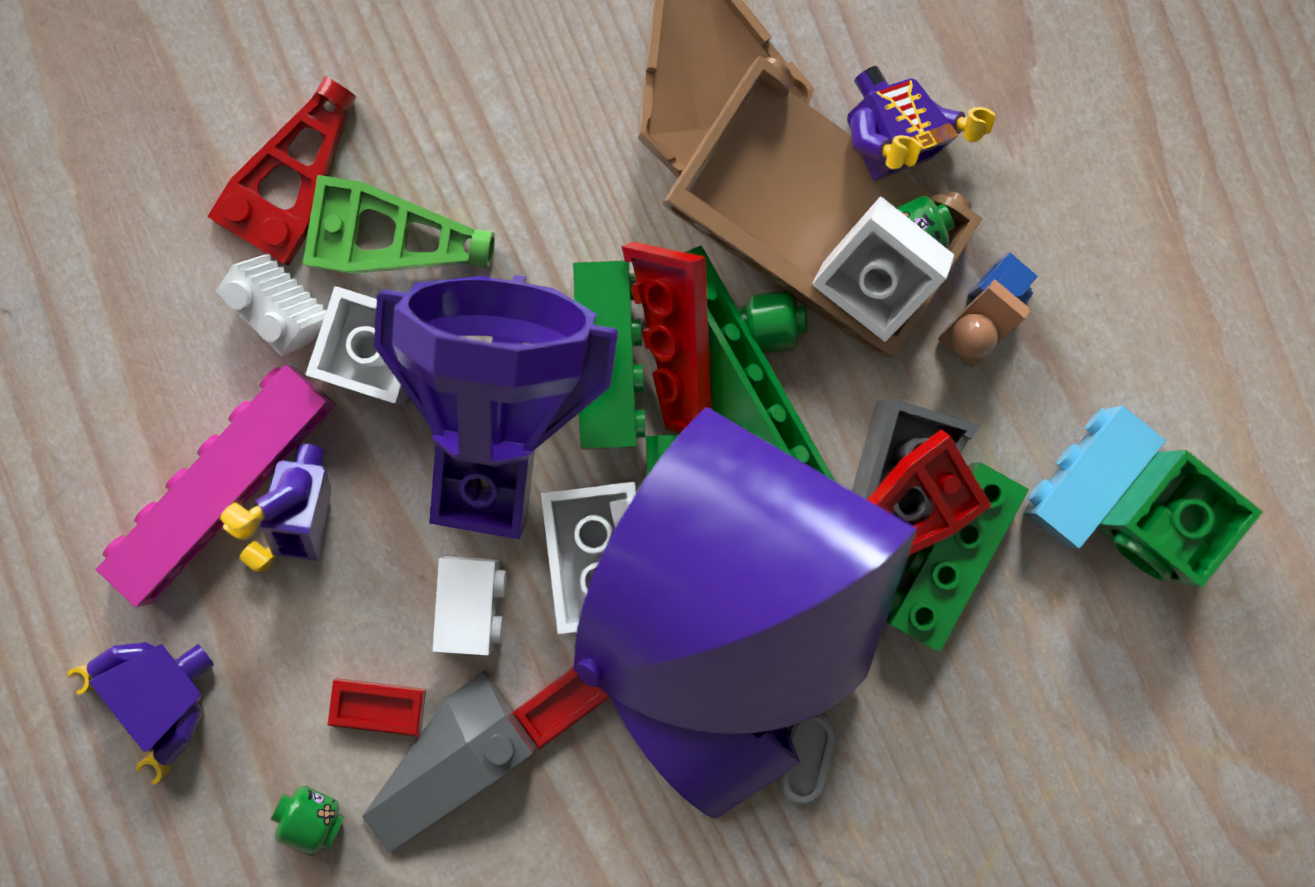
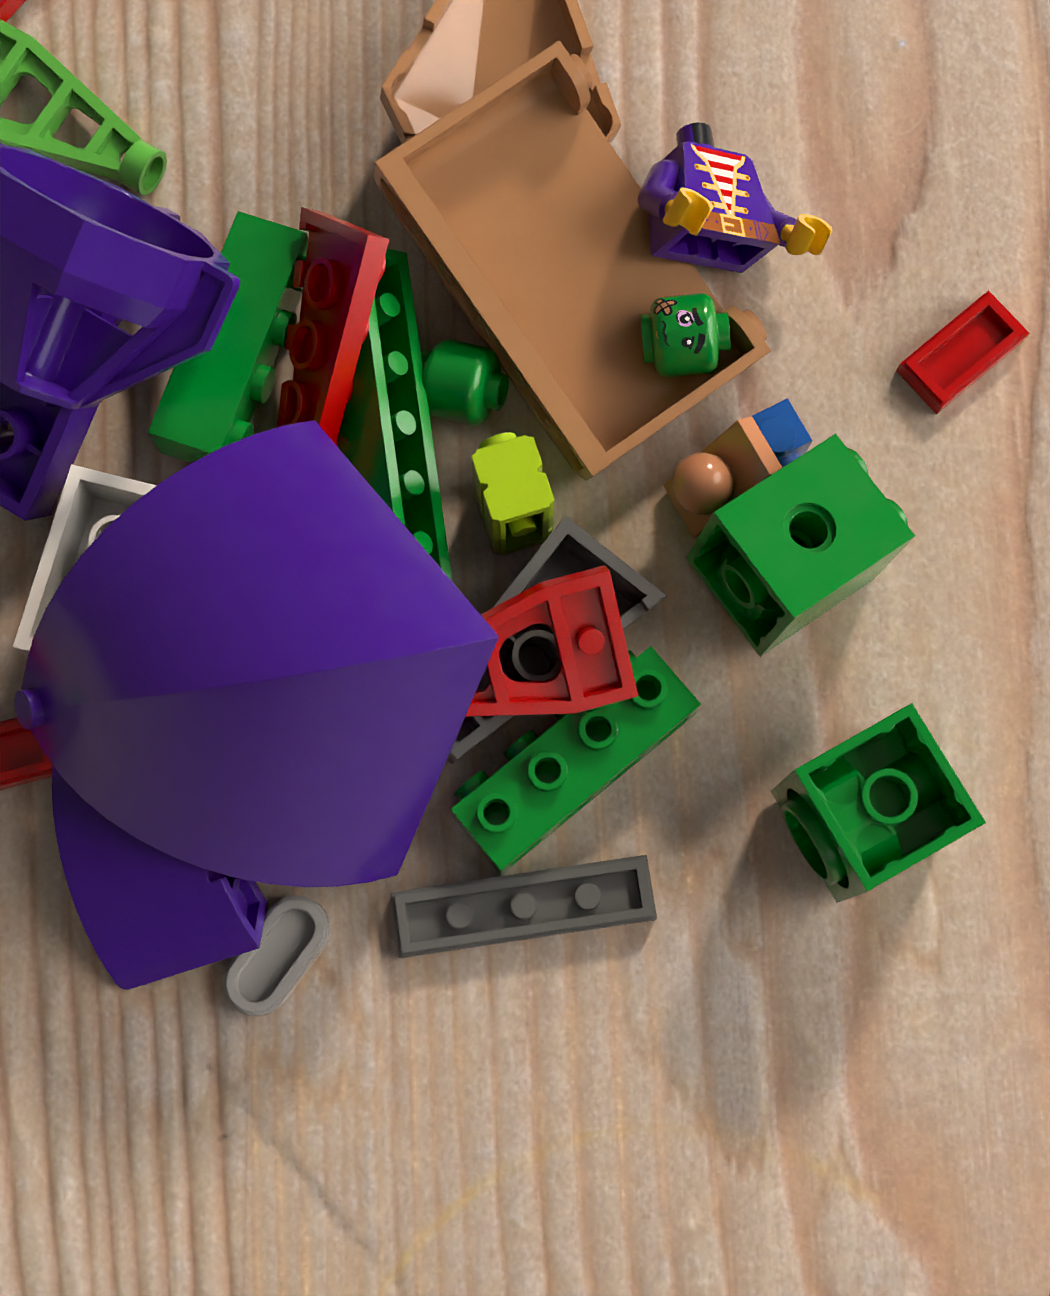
camera: 20 degrees right, 10 degrees down
(846, 392) = (512, 492): none -> lime brick
(883, 269) = (613, 350): white brick -> none
(958, 663) = (523, 906): none -> dark grey tile
(1058, 355) = (798, 543): none -> green brick
(1093, 475) = (793, 724): medium azure brick -> none
(1108, 160) = (962, 352): none -> red tile

